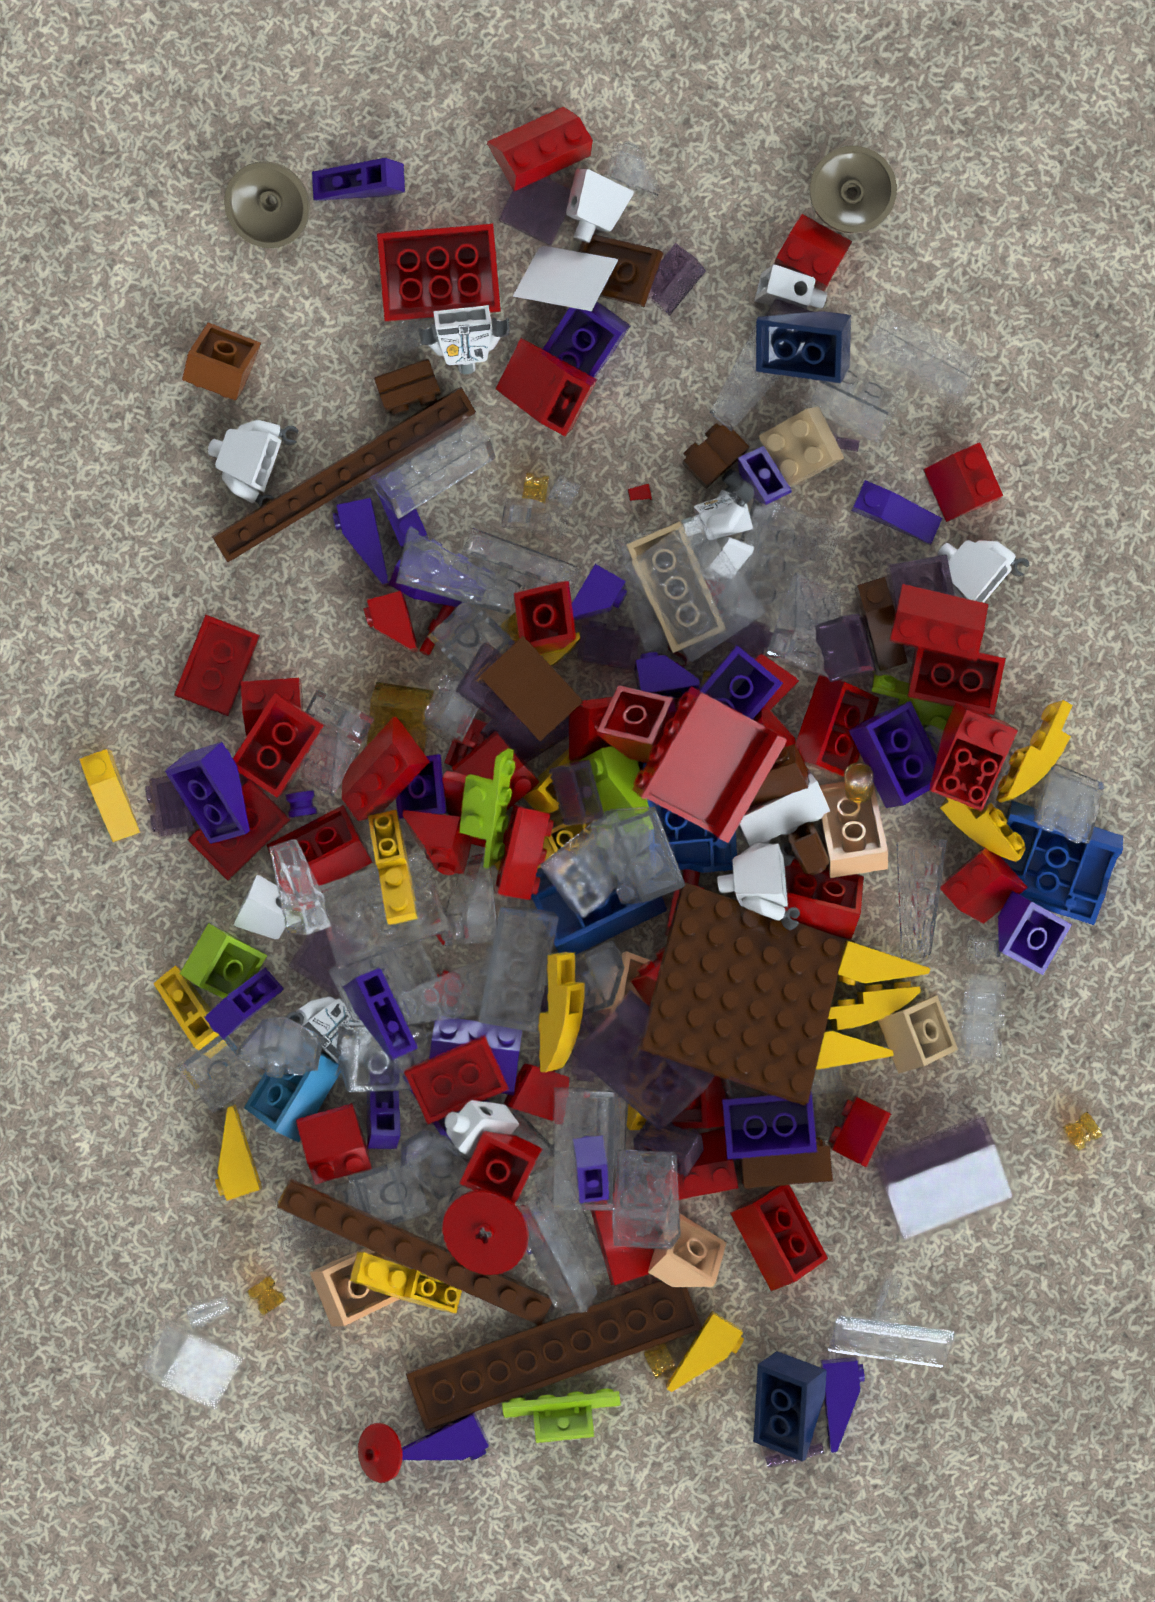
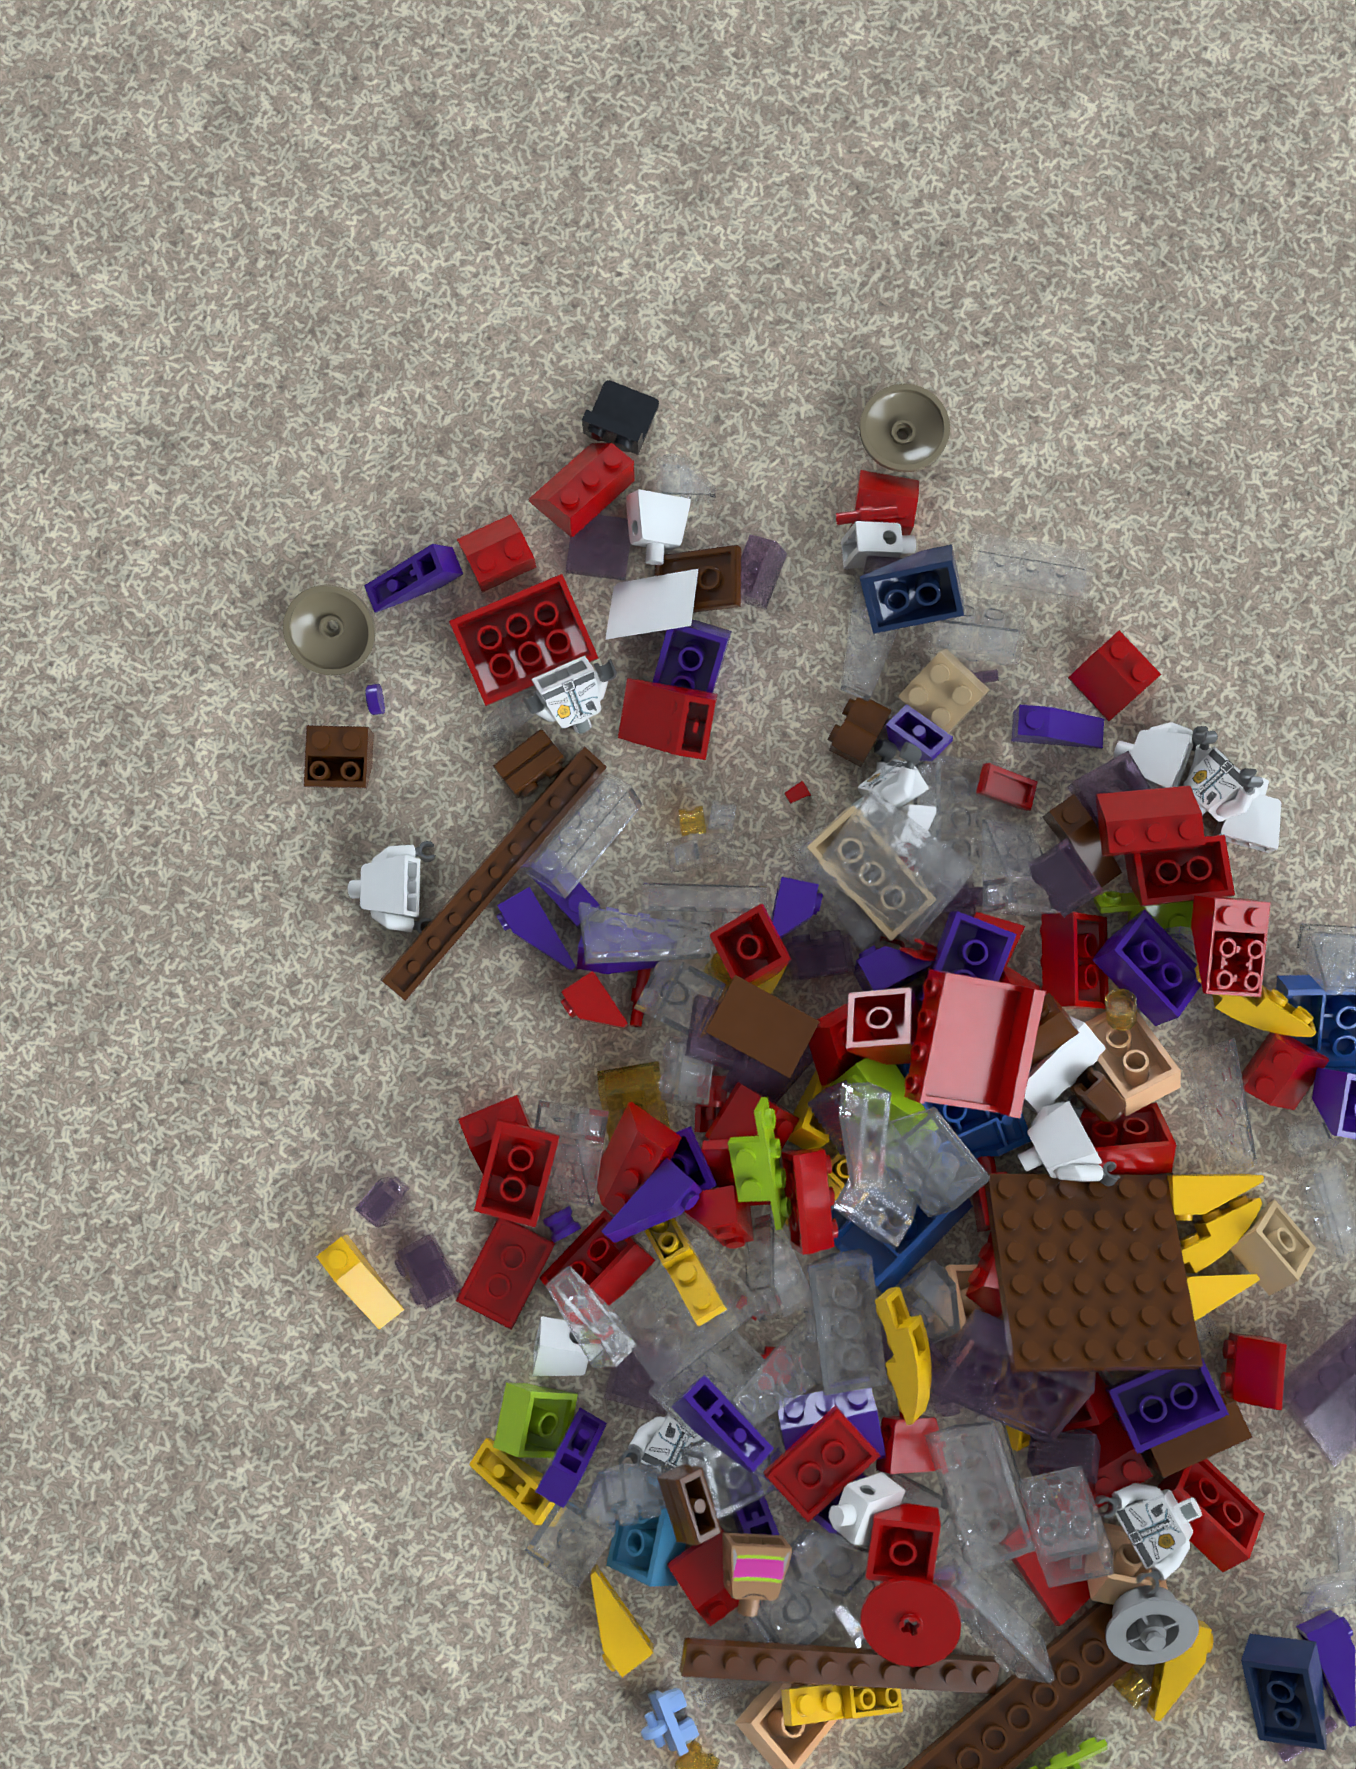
camera: 20 degrees left, 5 degrees down
(153, 731) = (384, 1201): none -> clear purple brick
(211, 791) = (465, 1244): dark purple slope -> none
(217, 665) = (428, 1109): red tile -> none
(221, 361) = (331, 810): dark orange slope -> none
(238, 324) = (338, 756): none -> reddish brown slope
(255, 1265) = (676, 1734): none -> light blue hips
(288, 281) = (375, 699): none -> dark purple tile
(330, 1071) = (689, 1504): none -> reddish brown brick
(367, 1143) = (754, 1568): none -> medium nougat torso
(389, 808) = (659, 1199): none -> dark purple slope
(434, 1221) = (850, 1625): none -> clear tile
(441, 181) = (497, 553): none -> red slope
(586, 808) = (864, 1132): none -> clear slope
(591, 1168) = (1000, 1515): dark purple slope -> none
(597, 91) = (620, 417): none -> black bracket
(688, 1309) = (1150, 1627): none -> light grey wheel
(700, 674) = (927, 952): none -> red piece
(722, 1227) = (1154, 1526): none -> white torso
(787, 260) = (867, 514): none -> red bar
(829, 550) = (1006, 787): none -> red tile
(1018, 608) = (1217, 781): none -> torso
(1035, 761) = (1294, 919): yellow slope -> none
(1040, 652) = (1257, 827): none -> white torso

